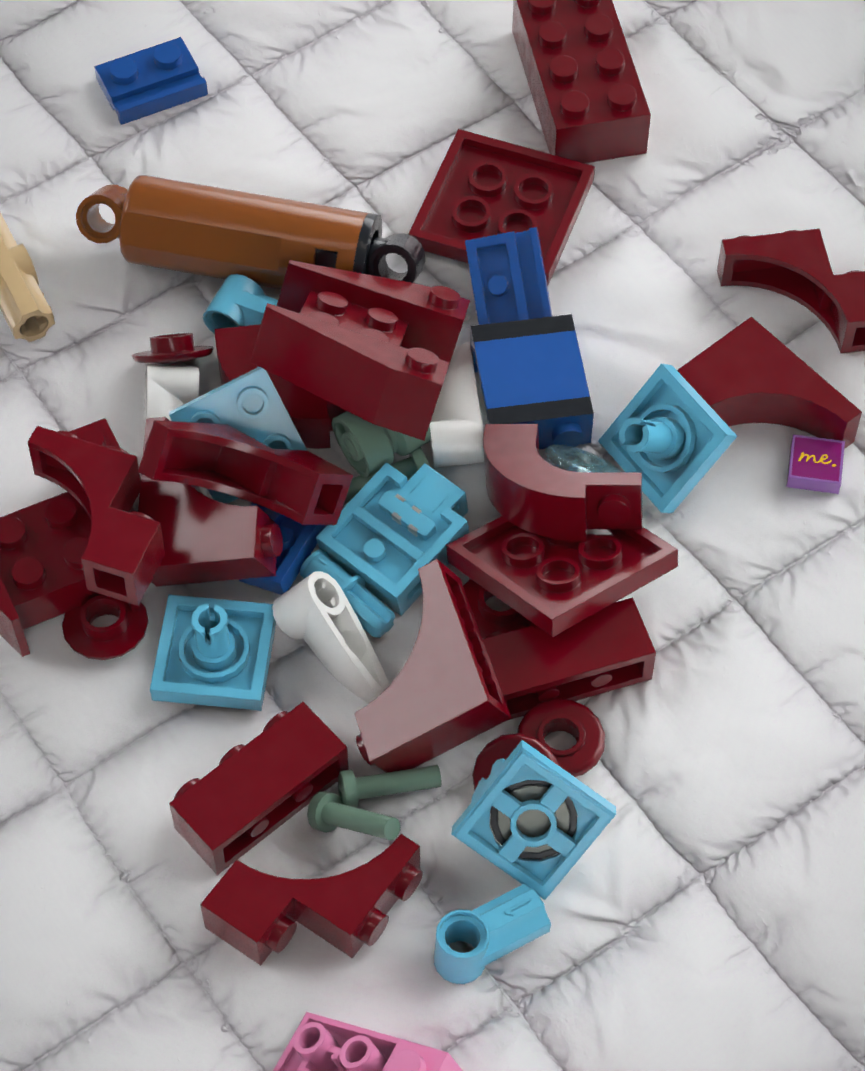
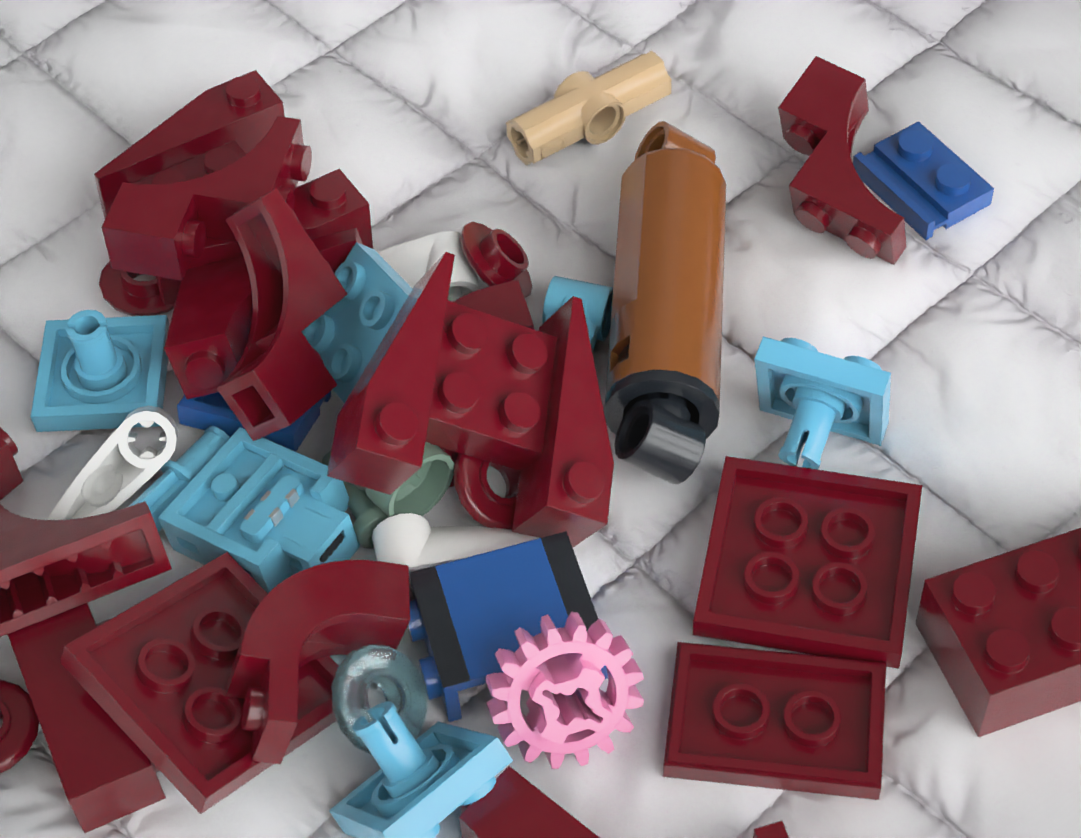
camera: 85 degrees right, 5 degrees down
(160, 127) = (827, 193): none -> dark red arch
(381, 159) = (820, 396): none -> medium azure plate
(508, 277) = (659, 573): blue plate -> none
(607, 341) = (559, 664): none -> bright pink gear
(621, 252) = (776, 720): none -> dark red tile

